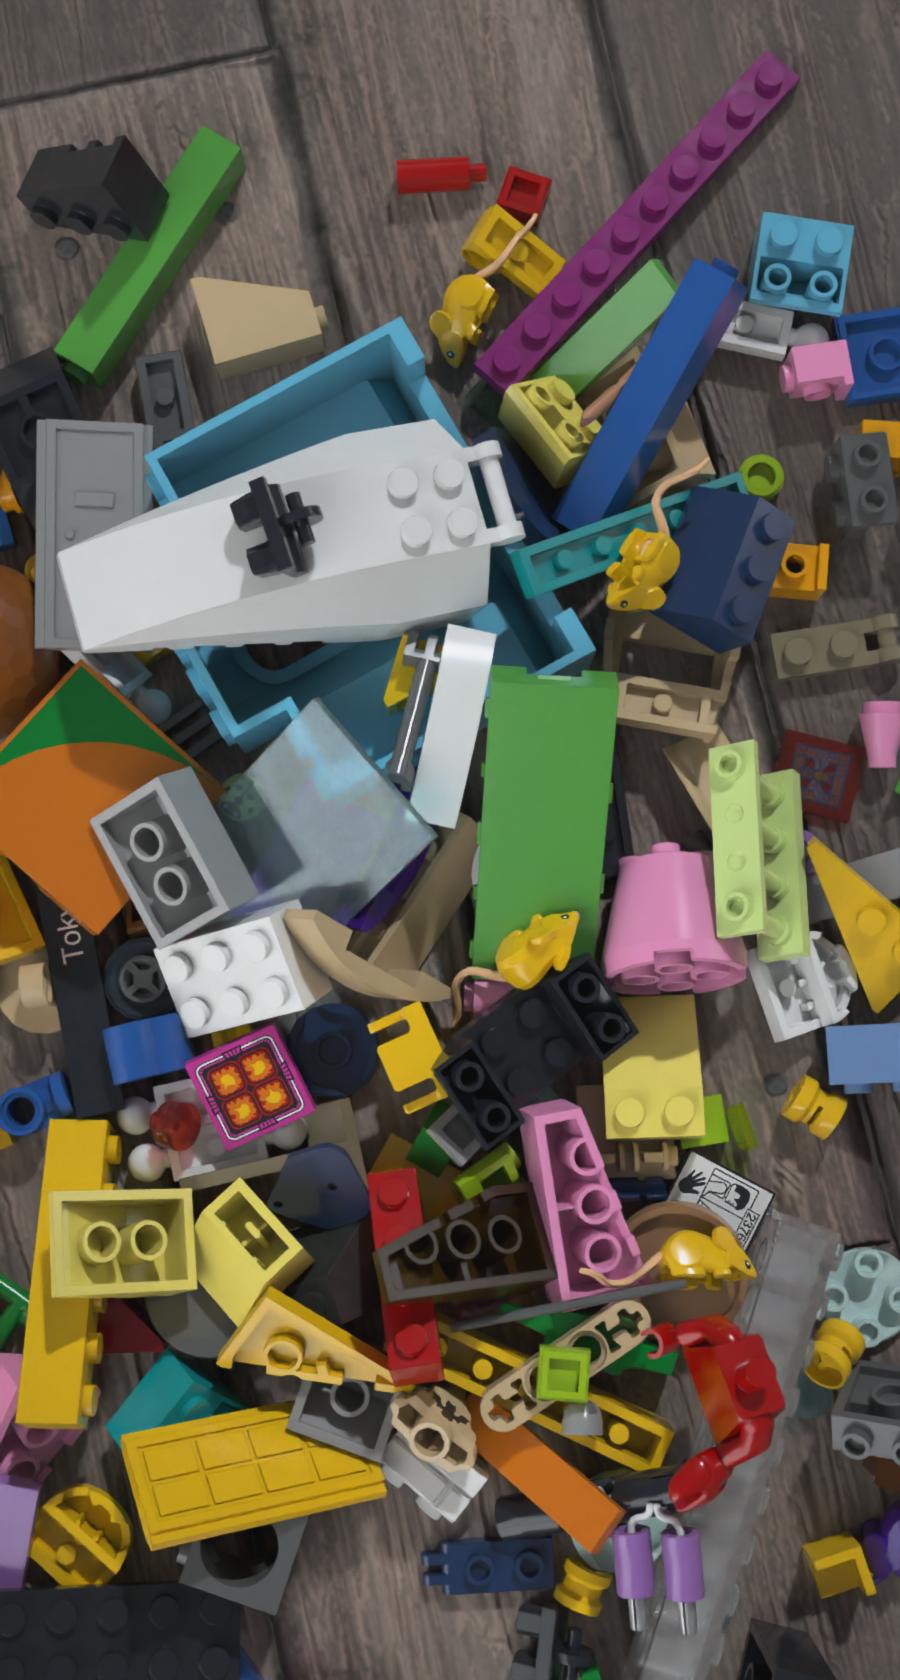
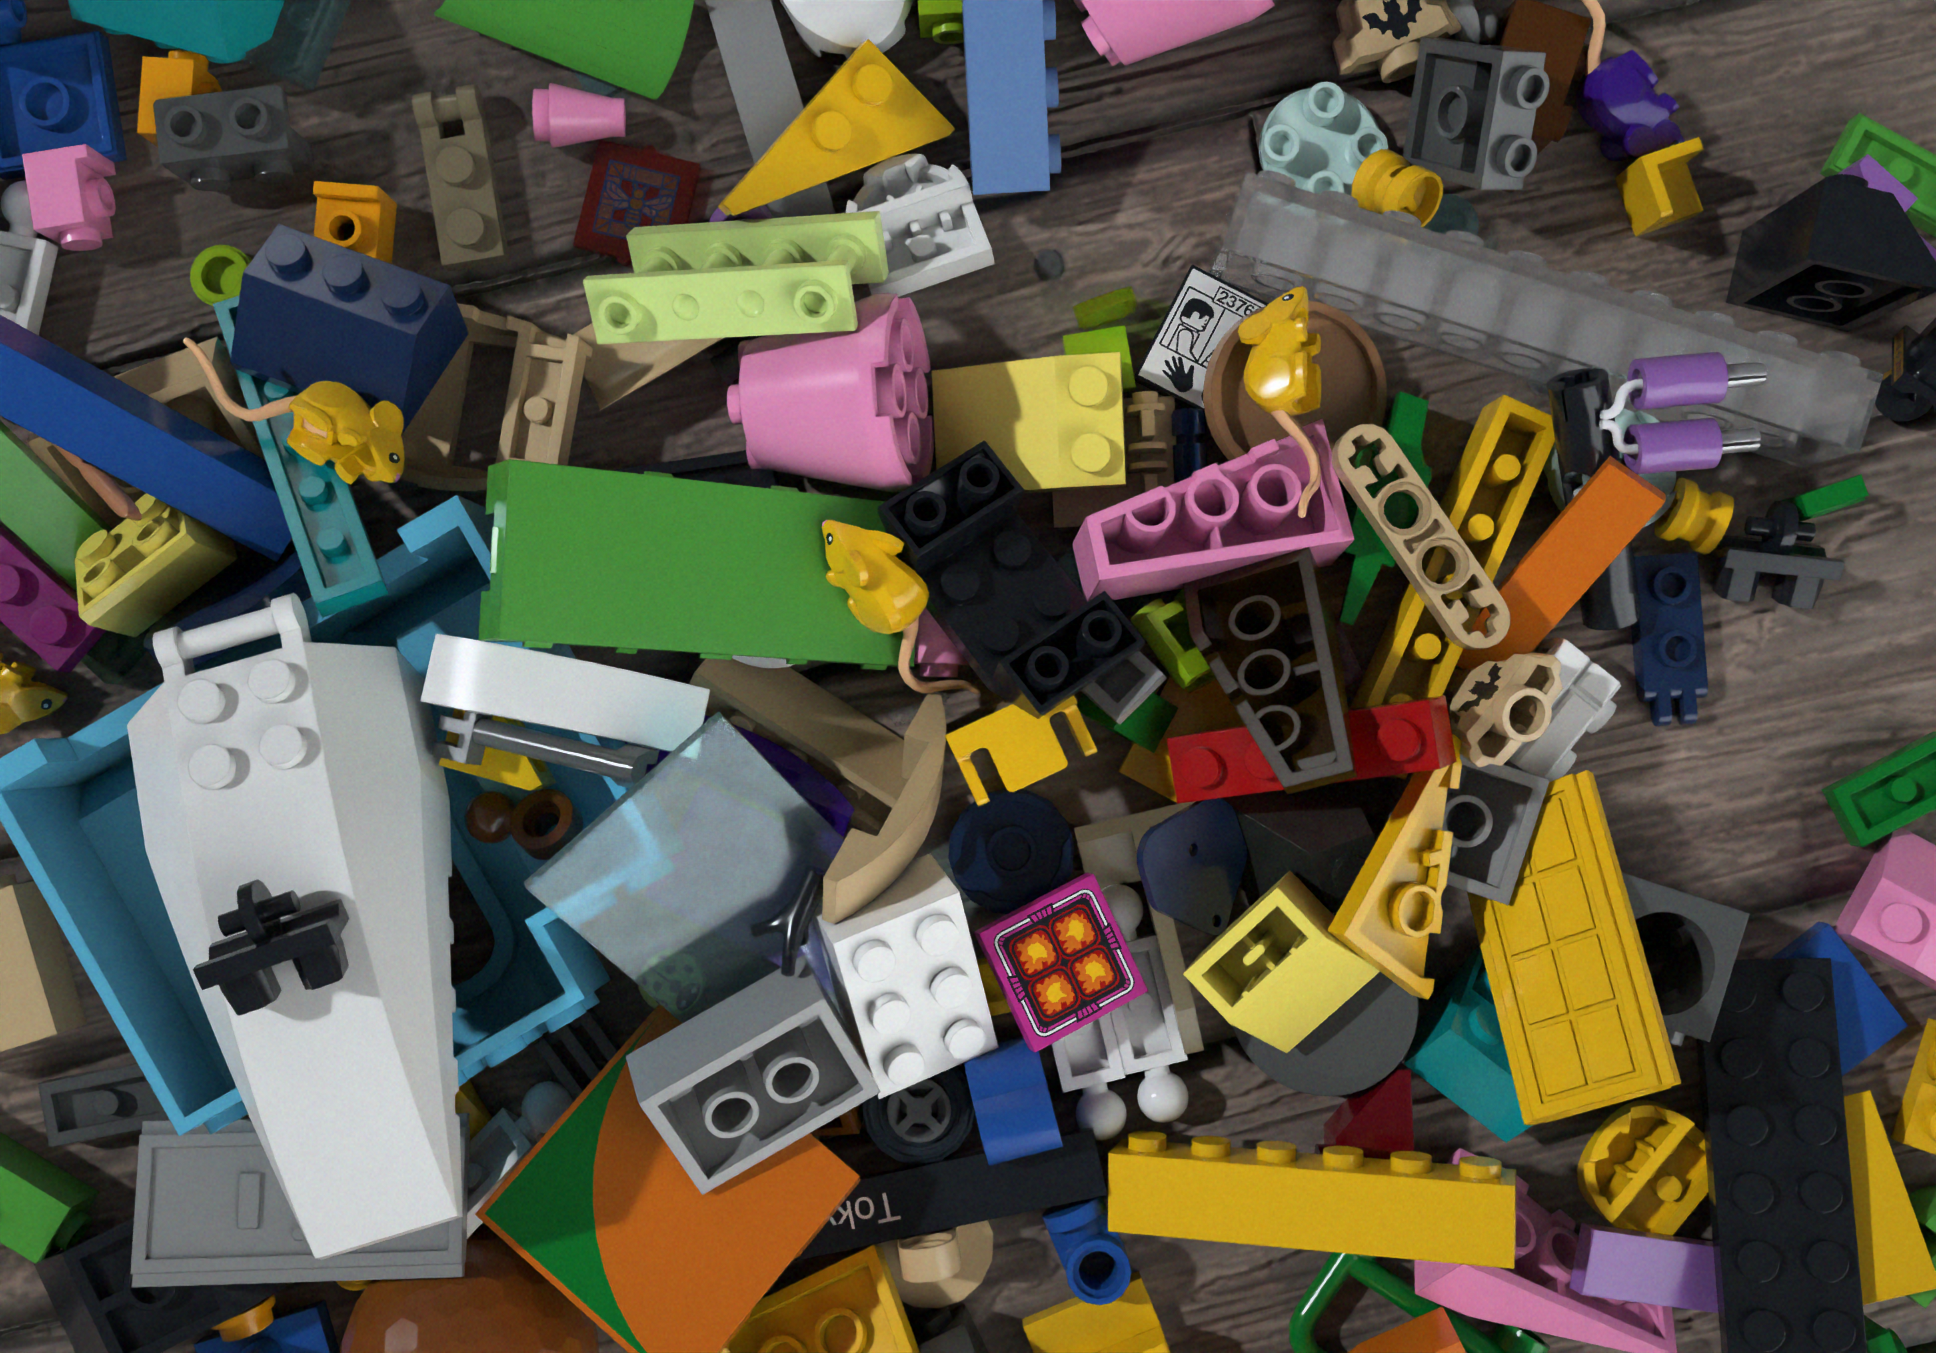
camera: 90 degrees left, 5 degrees up
(121, 1243) = (1273, 1133): light yellow slope -> none
(175, 1125) = (1114, 1060): clear red tile -> none
(287, 889) = (795, 918): none -> black bar
(363, 671) = (494, 817): none -> reddish brown plate
(563, 1373) = (1434, 538): lime tile -> none
(568, 1305) = (1344, 532): dark grey piece -> none
(582, 1419) = (1491, 514): light grey hinge -> none
(737, 1396) = (1462, 306): red torso -> none
(814, 1107) = (1078, 212): yellow wheel -> none

